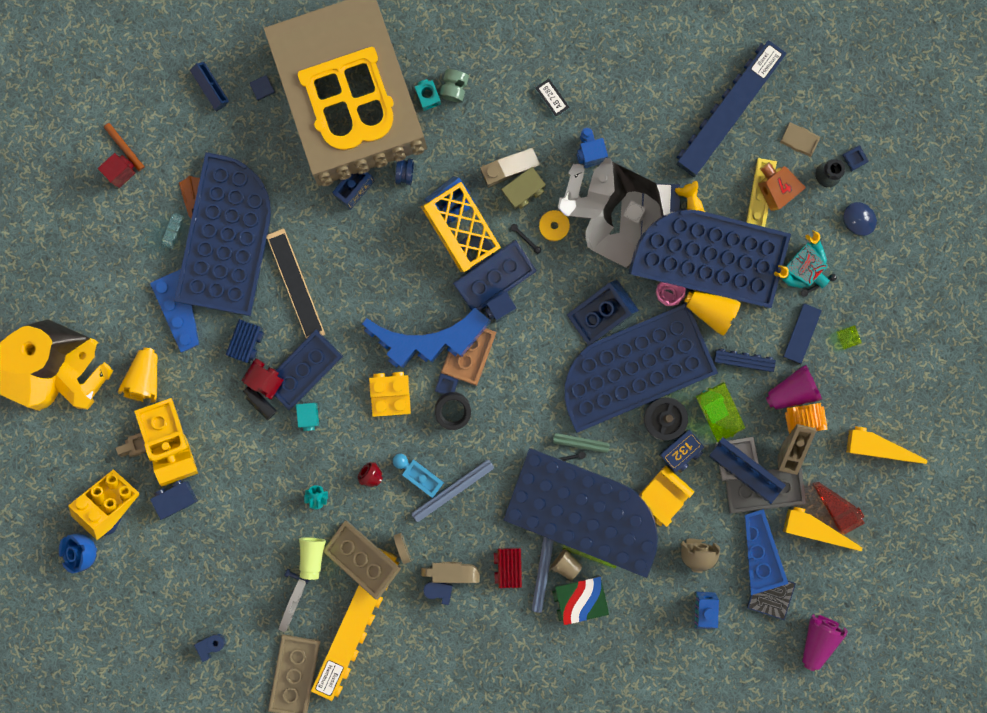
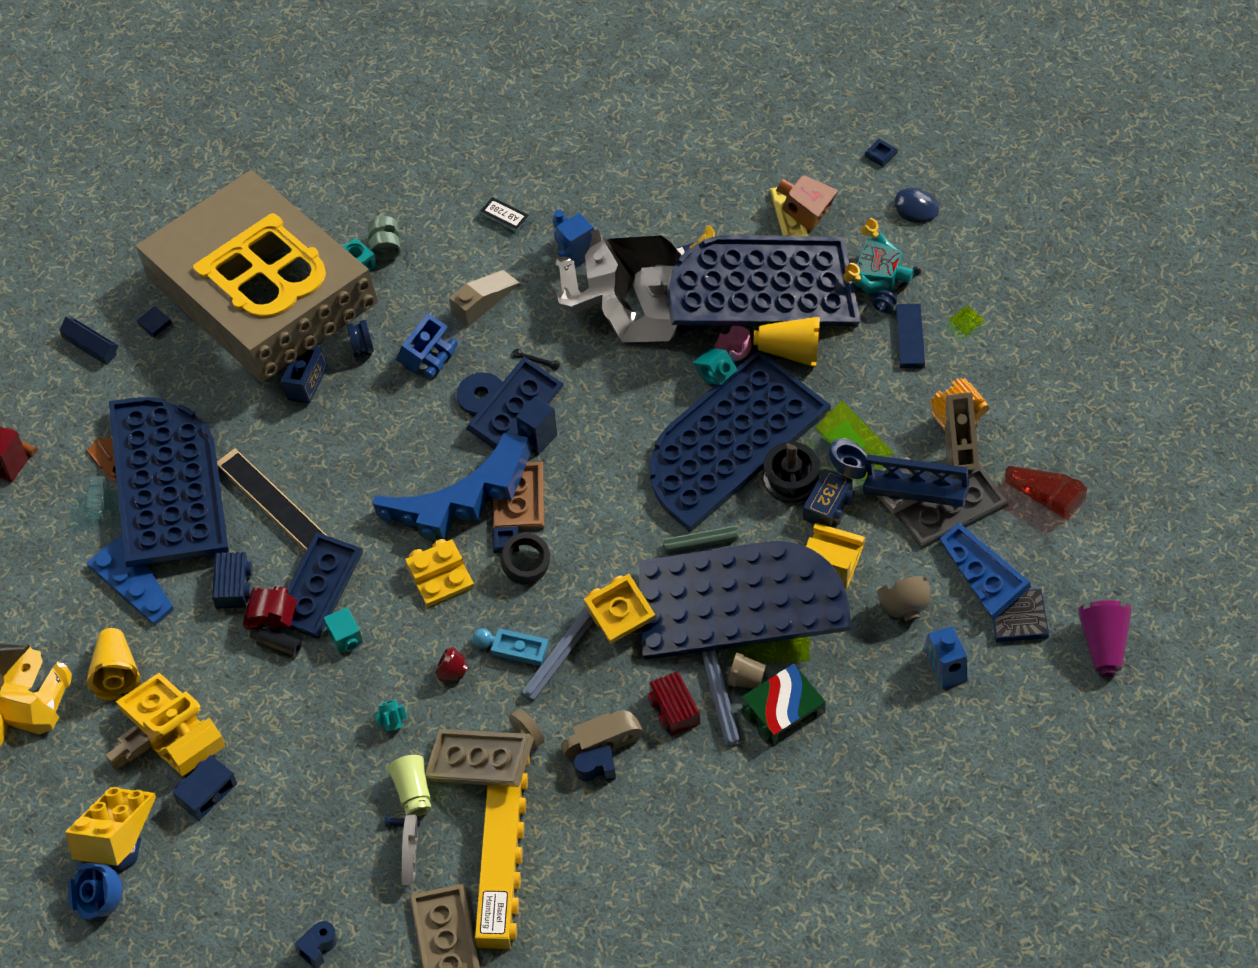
camera: 20 degrees left, 30 degrees down
(447, 237) = (439, 374): yellow fence -> none
(499, 484) = (619, 608): none -> yellow plate
(524, 188) = (510, 307): olive brick -> none
(554, 234) = (567, 342): yellow piece -> none
(602, 312) = (662, 393): dark blue slope -> none
(649, 306) = (715, 366): none -> teal brick
(709, 430) = (848, 458): none -> dark blue hat
(731, 108) = (714, 154): dark blue brick -> none
(744, 360) = (857, 384): dark blue piece -> none
(794, 390) = (933, 376): magenta cone -> none
(796, 298) = (885, 301): none -> dark blue bush
(800, 139) = (809, 158): dark tan piece -> none
(807, 526) = (1027, 521): yellow slope -> none
(826, 177) = (859, 167): black plant -> none
(873, 445) = (1056, 411): yellow slope -> none

